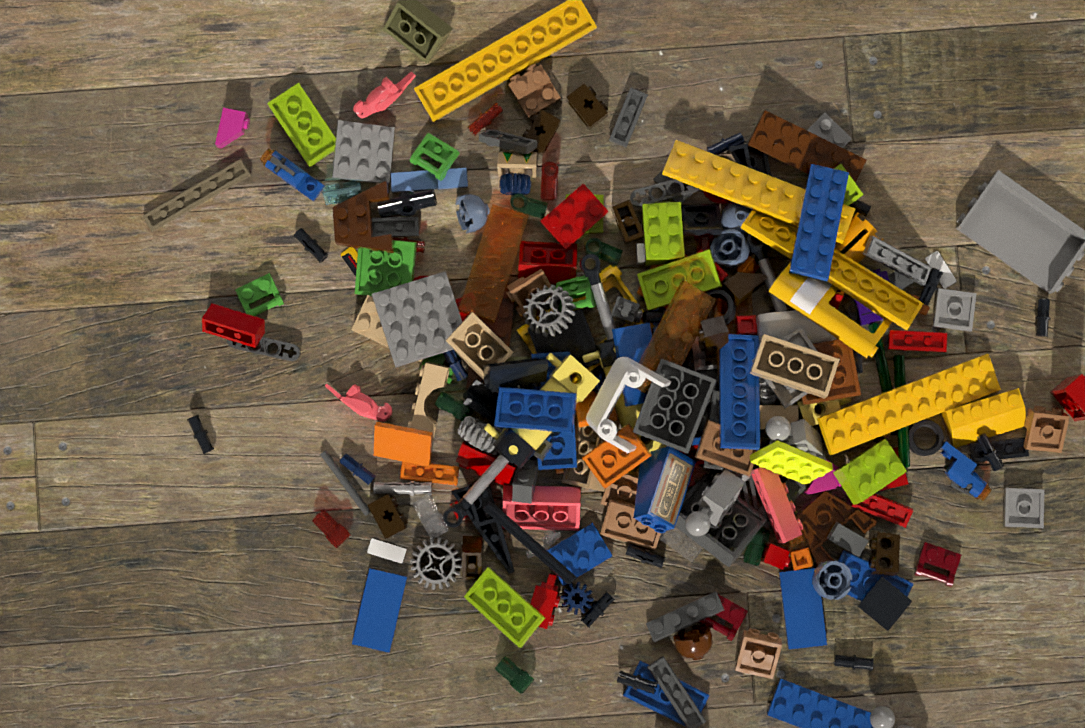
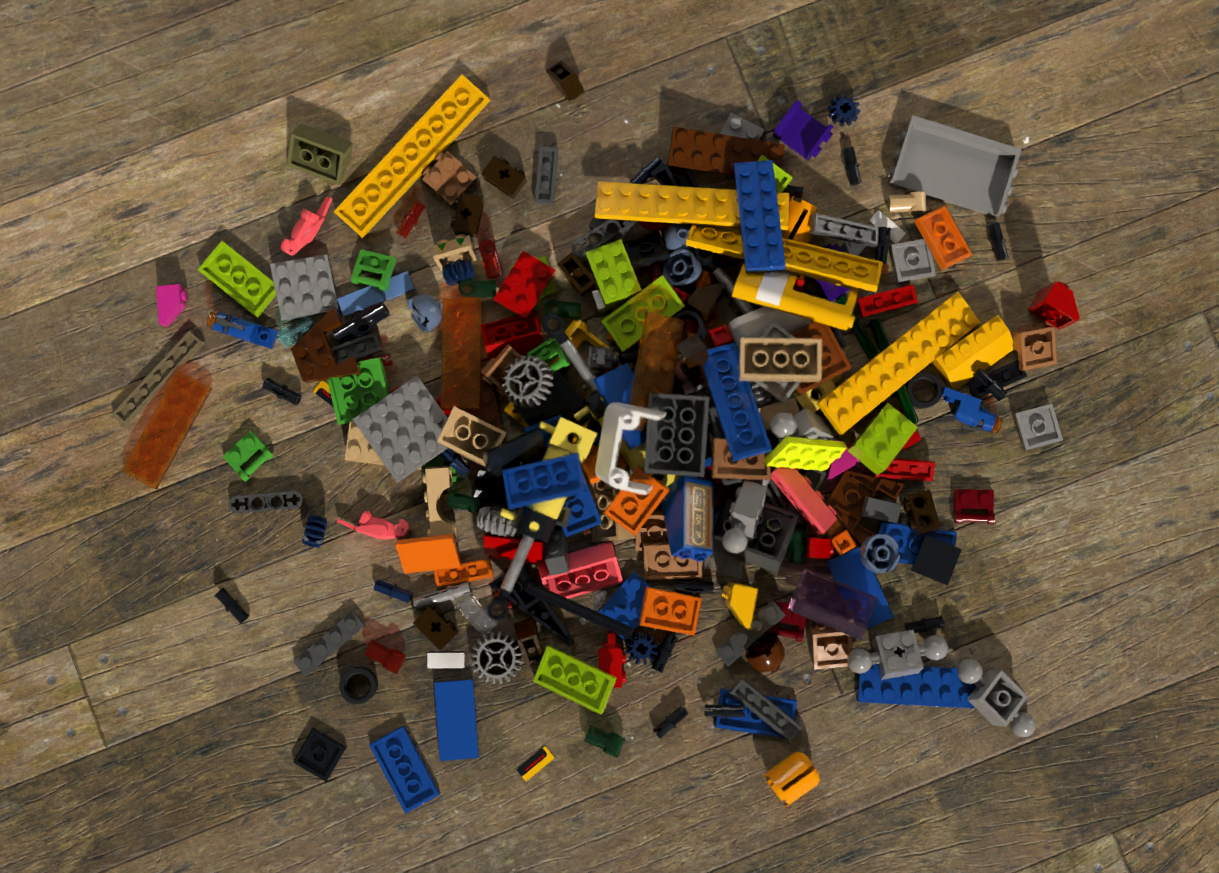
camera: 15 degrees left, 0 degrees up
(190, 247) = (166, 429): none -> clear orange plate
(233, 325) = (230, 491): red brick -> none
(239, 601) = (319, 754): none -> black tile
(281, 499) = (329, 643): none -> dark grey plate
(297, 562) = (344, 680): none -> black tyre
(301, 388) = (314, 531): none -> dark blue gear
(315, 641) = (404, 769): none -> blue tile
(345, 482) = (385, 607): dark grey bar -> none
(441, 676) = (535, 763): none -> sticker
(507, 141) = (438, 233): dark grey plate -> none
(582, 677) = (670, 721): none -> black axle
(615, 571) = (670, 611): none -> orange tile
(675, 31) = (565, 80): none -> dark brown slope
(685, 583) = (740, 601): none -> yellow slope
(772, 613) = (832, 603): none -> clear purple brick
(808, 687) = (892, 665): none -> light grey brick
(887, 152) = (802, 132): none -> dark purple panel
(925, 200) = (852, 166): none -> black axle
(926, 144) = (850, 107): none -> dark blue gear
(972, 254) = (913, 203): none -> tan piece
(990, 297) = (943, 237): none -> orange tile

